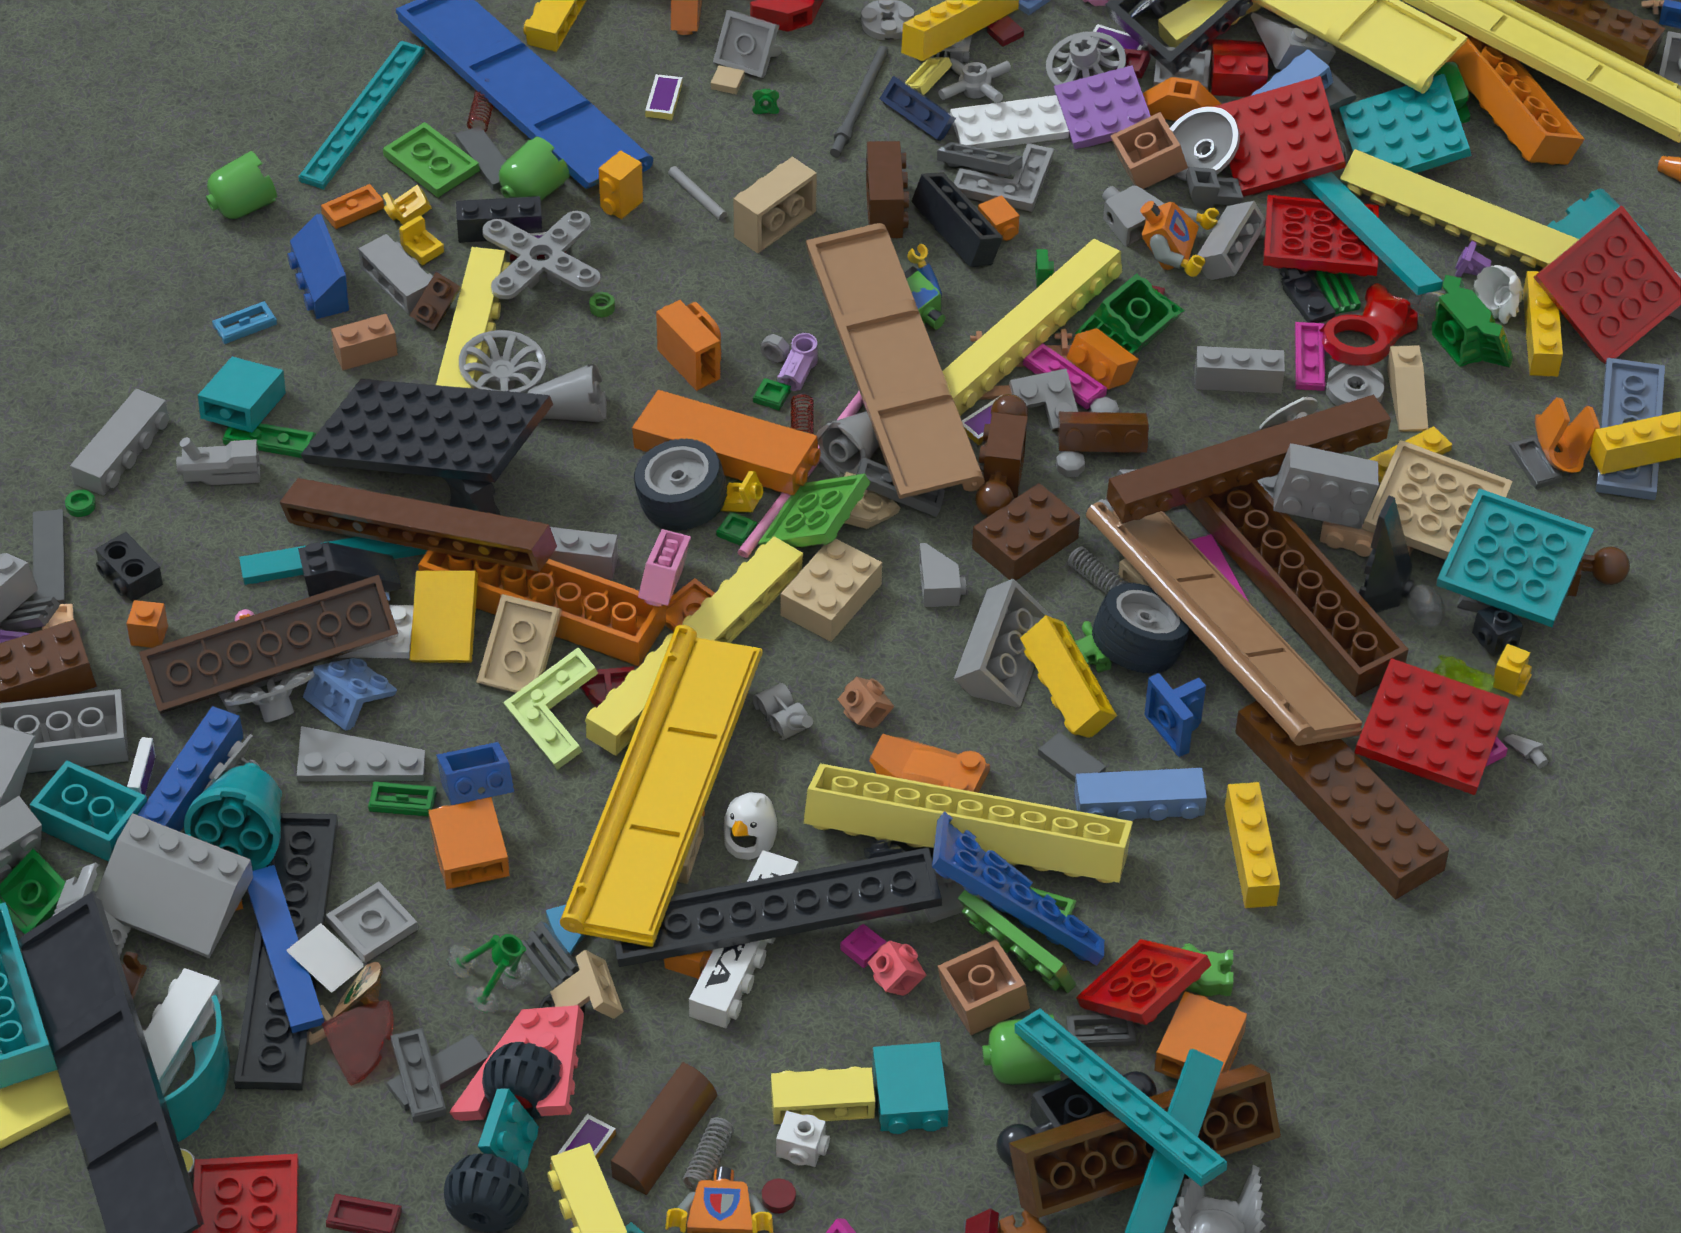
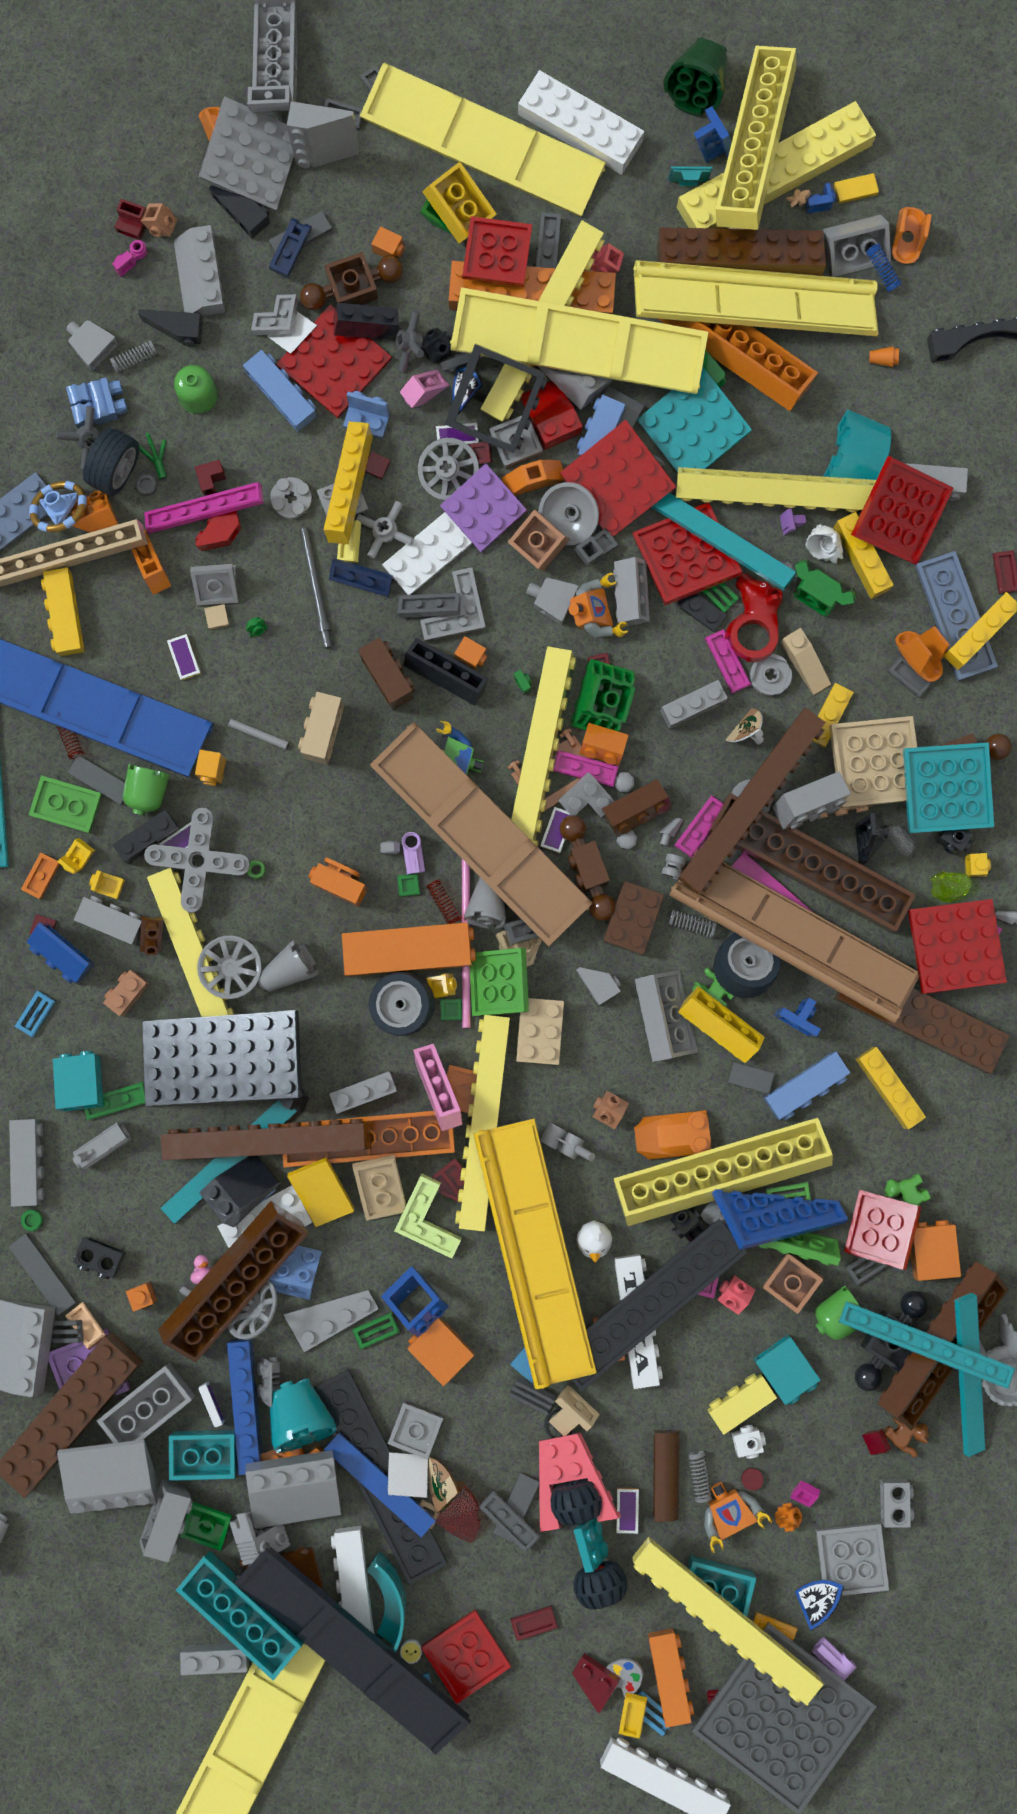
camera: 30 degrees left, 35 degrees up
(509, 969) = (515, 1424): plant -> none

